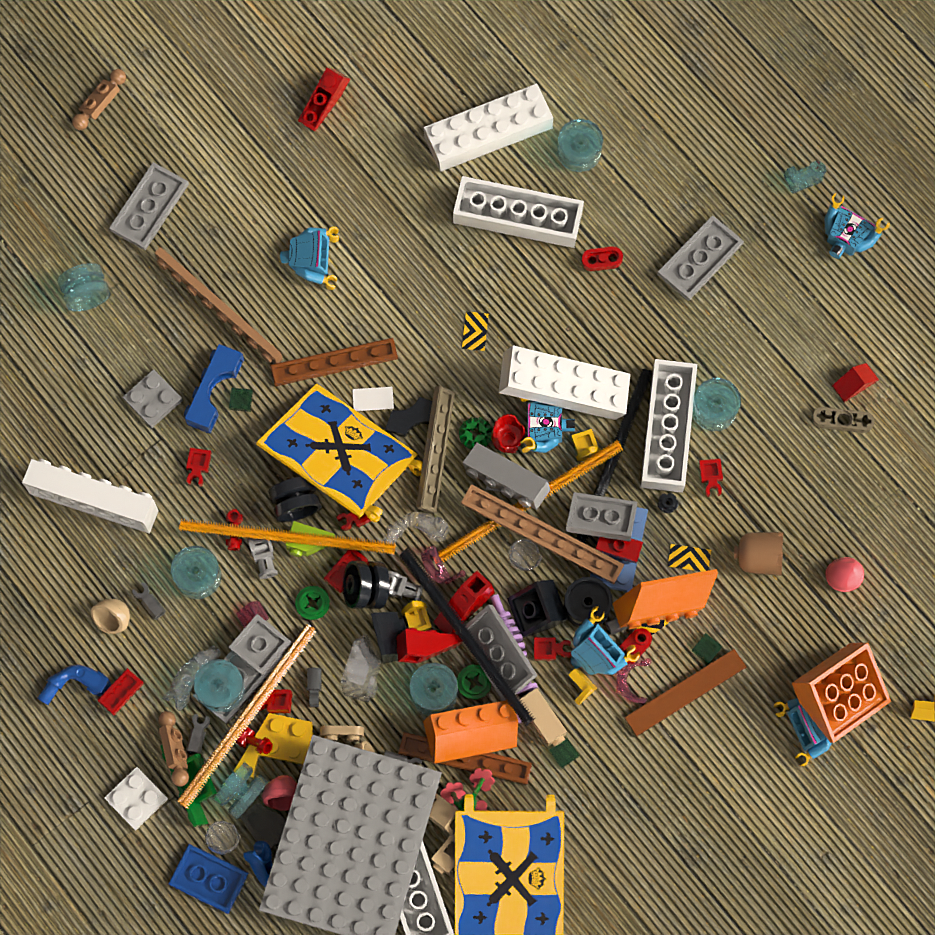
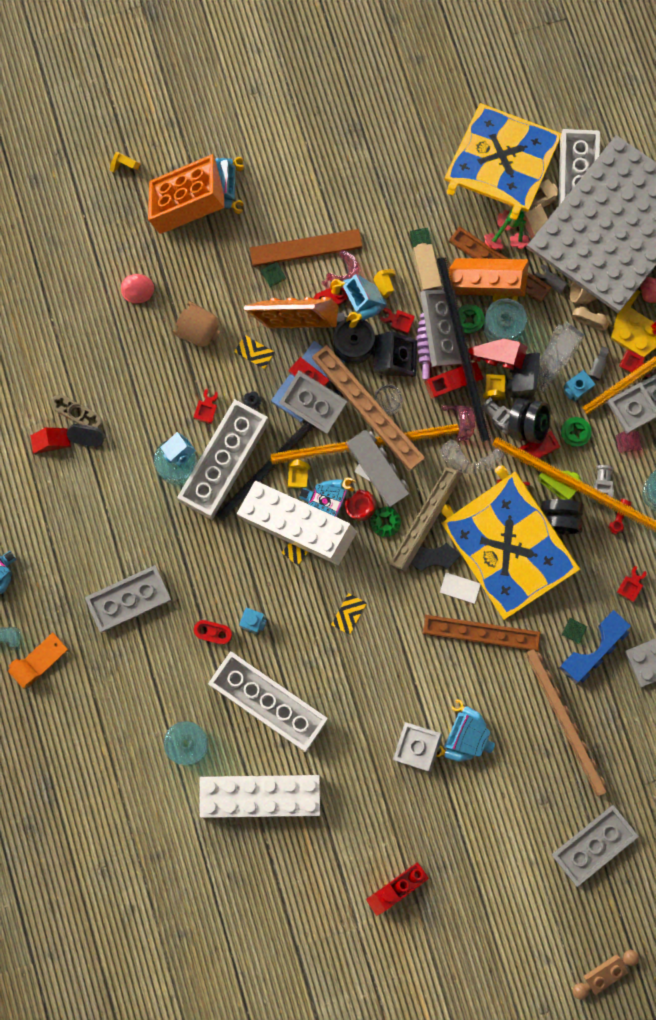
camera: 155 degrees left, 5 degrees up
(327, 651) = (578, 386): none -> dark azure brick
(354, 227) = (417, 747): none -> plate
(566, 282) = (252, 621): none -> dark azure brick
(717, 405) = (177, 449): none -> brick
(760, 167) = (38, 661): none -> orange door
(821, 399) = (86, 435): none -> black tile

